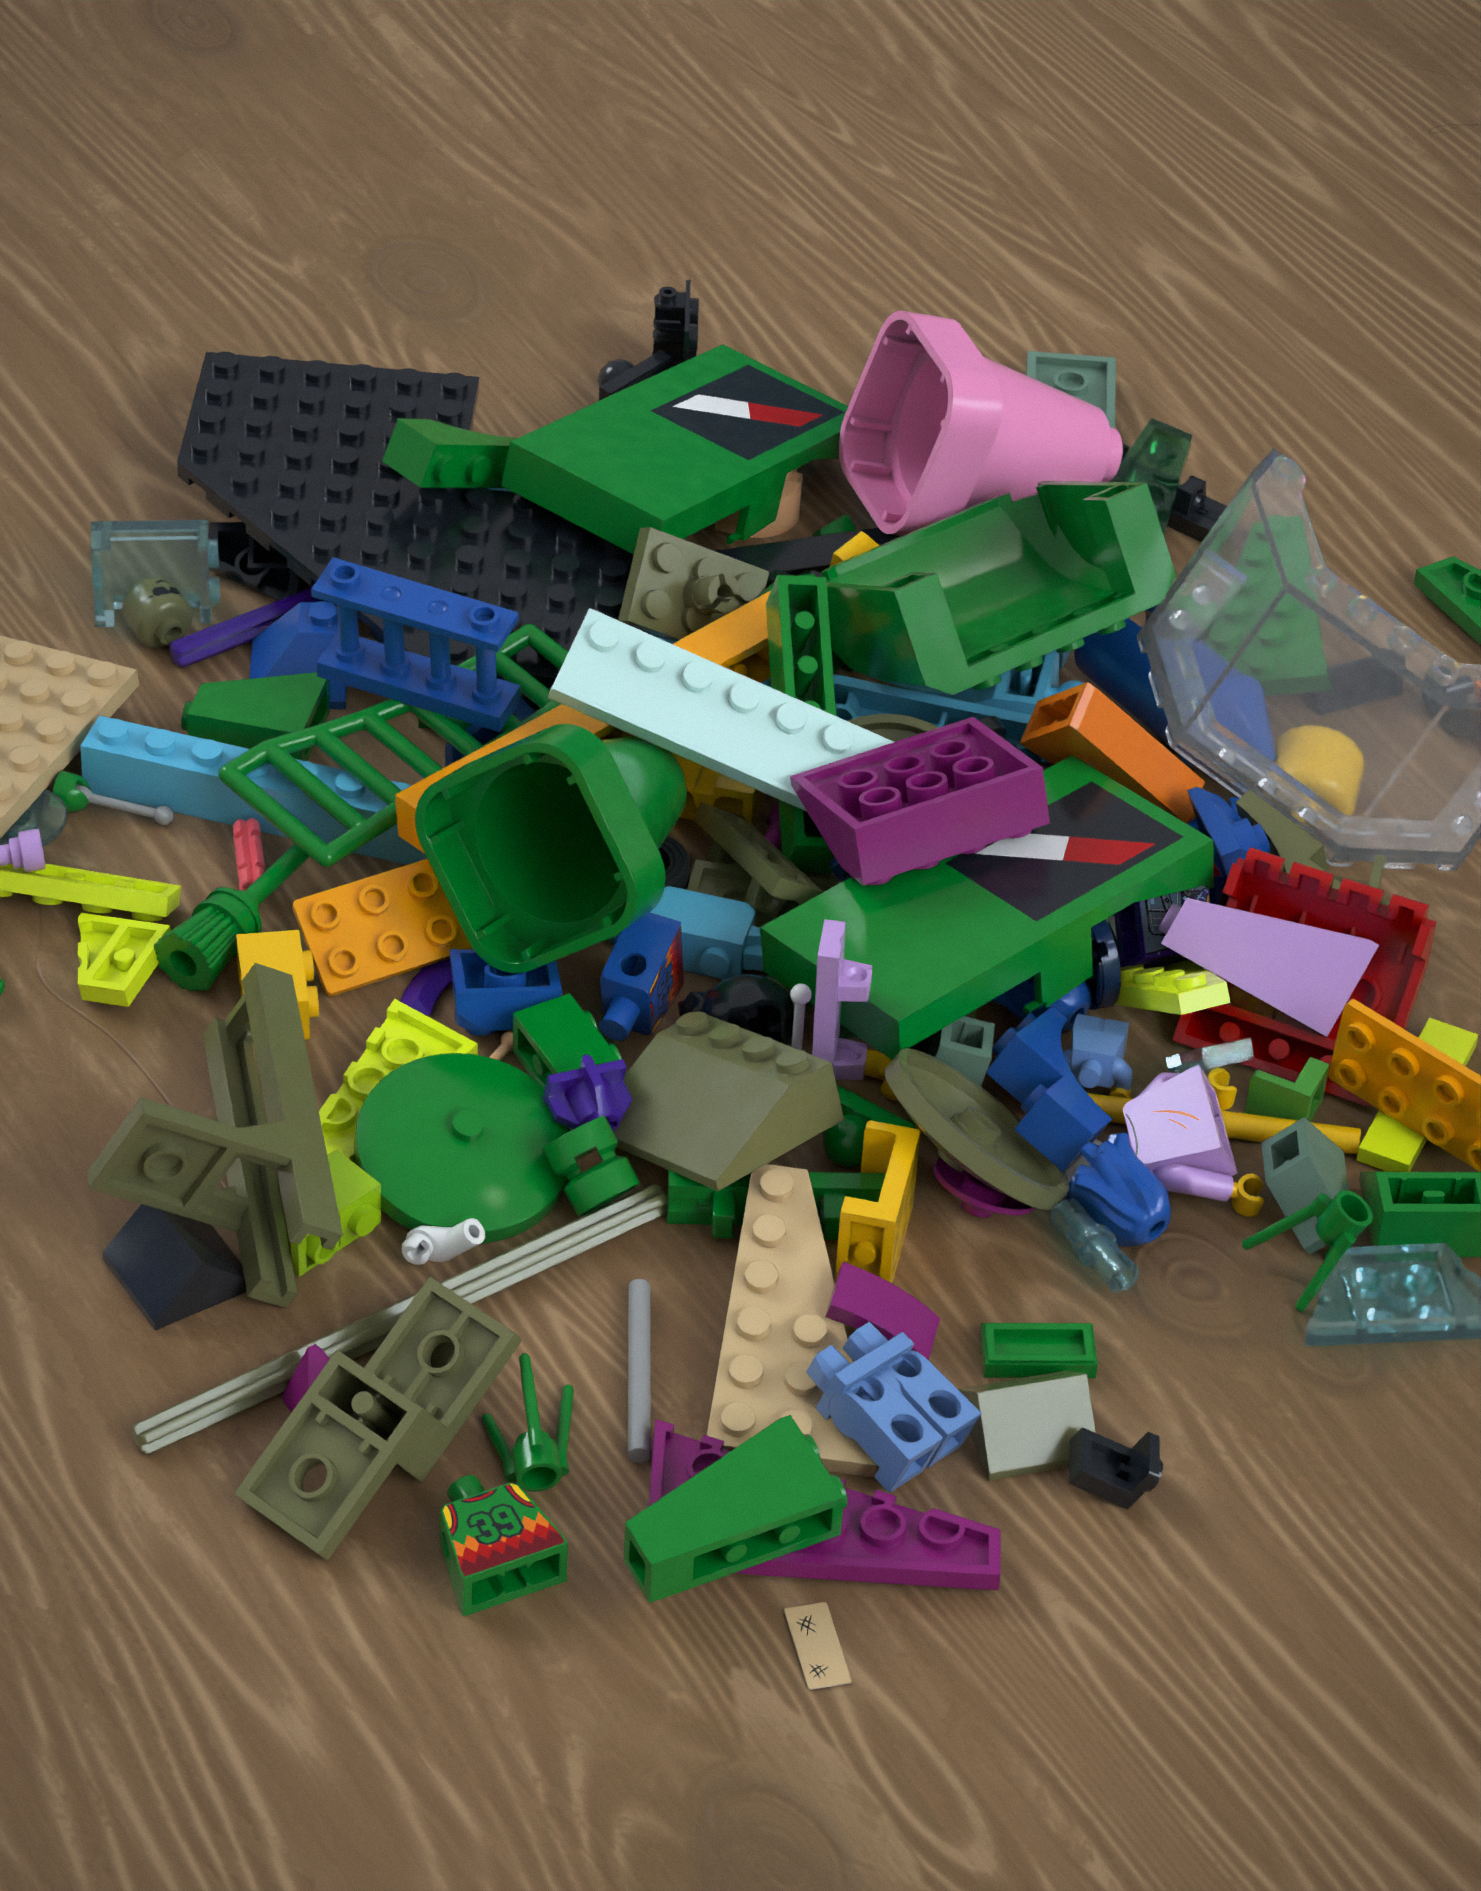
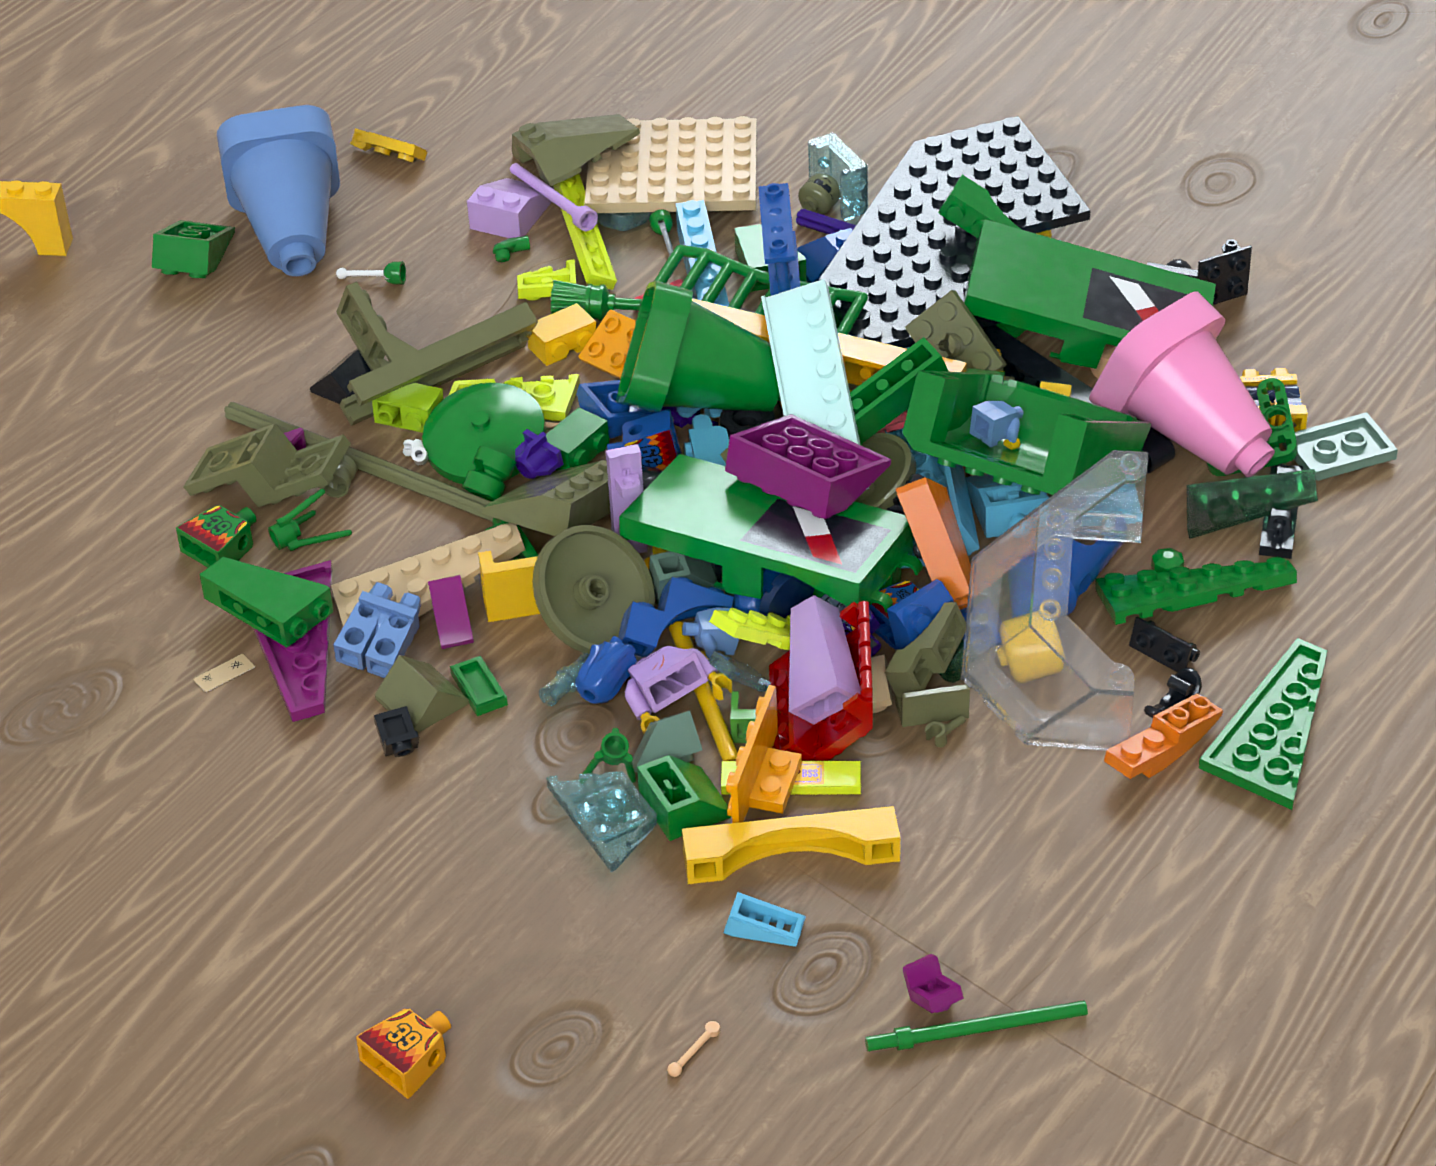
camera: 70 degrees right, 0 degrees up
(639, 1371) = (381, 547): light grey bar -> none

